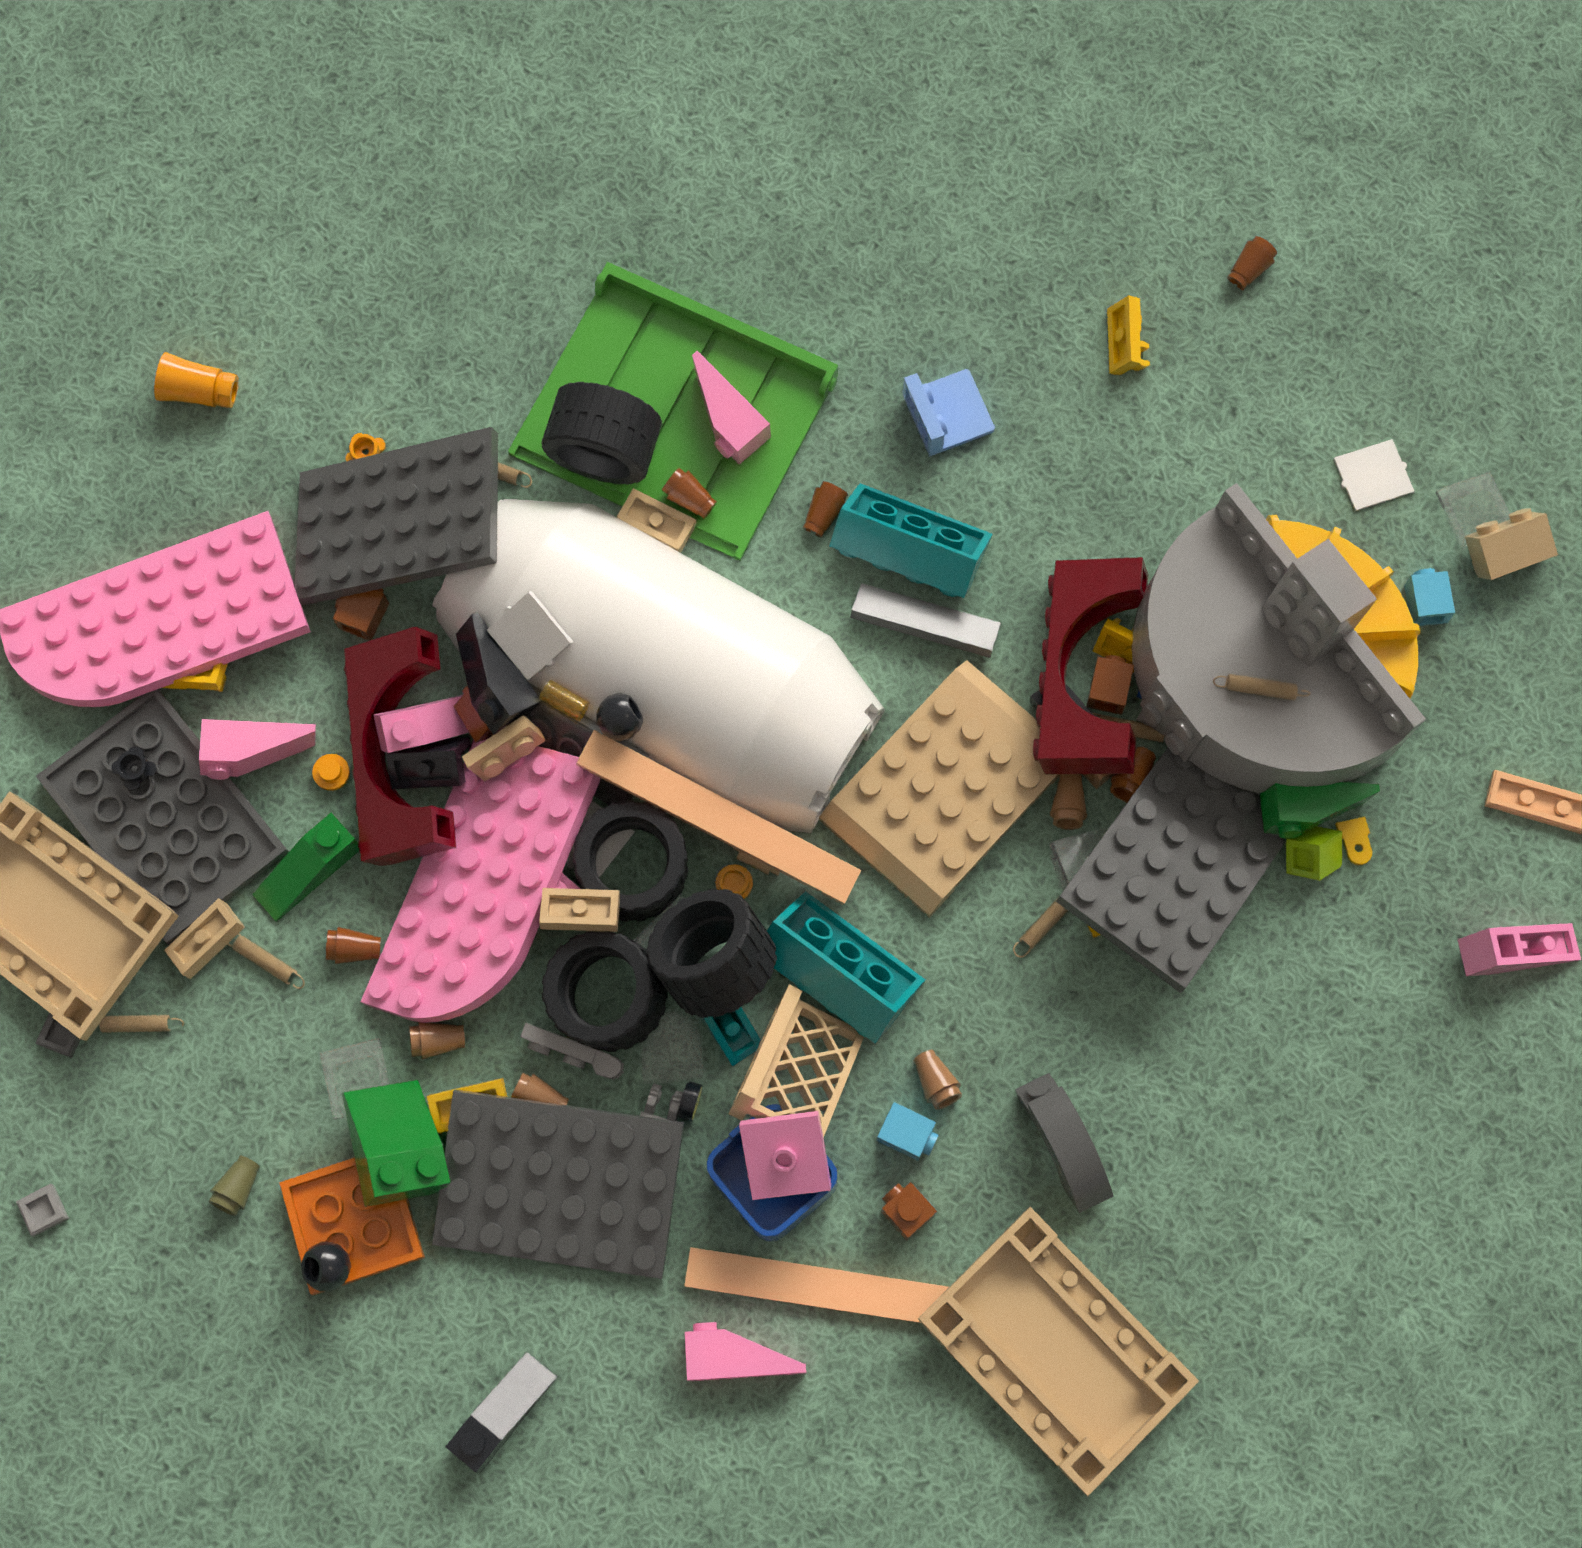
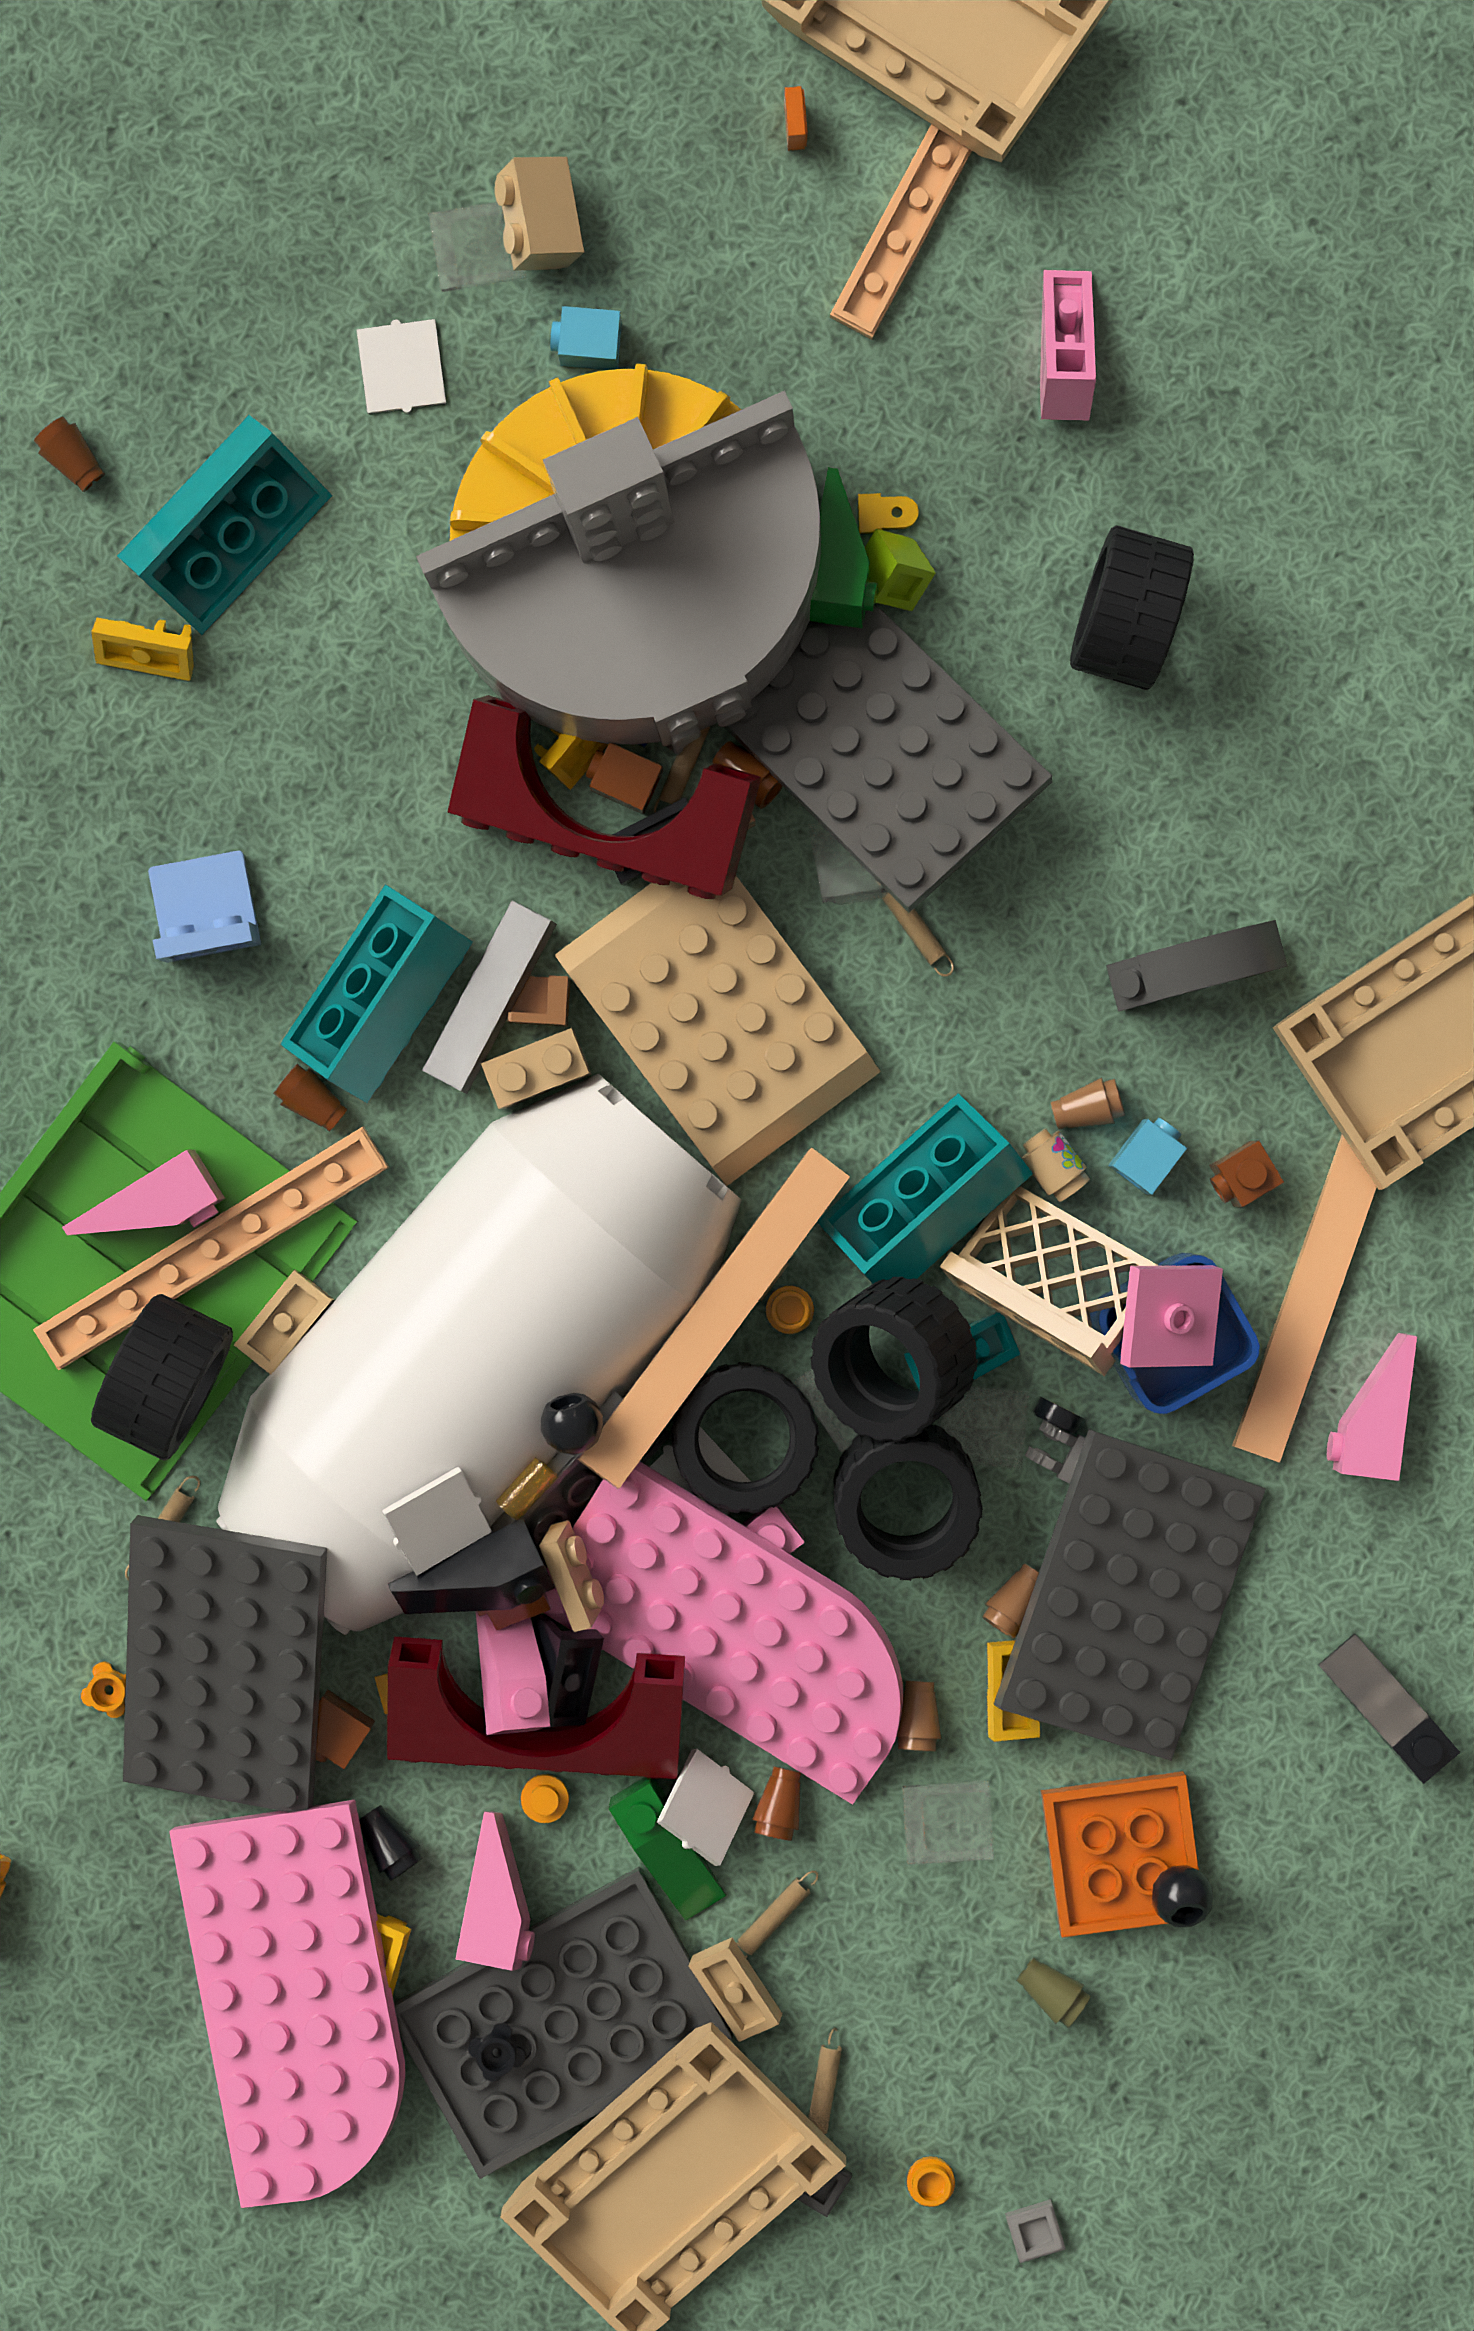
camera: 85 degrees left, 15 degrees up
(72, 1119) = (930, 2181): none -> light orange plate
(280, 665) = (389, 1843): none -> black cone
(342, 887) = (705, 1807): none -> white piece
(395, 1143) = (1043, 1789): green slope -> none
(575, 1053) = (949, 1586): light grey hinge -> none
(579, 909) = (808, 1515): tan plate -> none
(689, 493) = (257, 1273): dark orange cone -> none
(710, 467) = (212, 1247): none -> light nougat tile
(879, 661) = (536, 1069): none -> tan brick
(885, 1061) = (1055, 1164): none -> tan brick
(929, 659) = (542, 1002): none -> medium nougat panel
(1069, 803) = (771, 865): medium nougat cone -> none
(1227, 374) = (225, 524): none -> teal slope
(1261, 687) = (695, 590): tan piece -> none
(1330, 1026) = (1132, 607): none -> black tyre

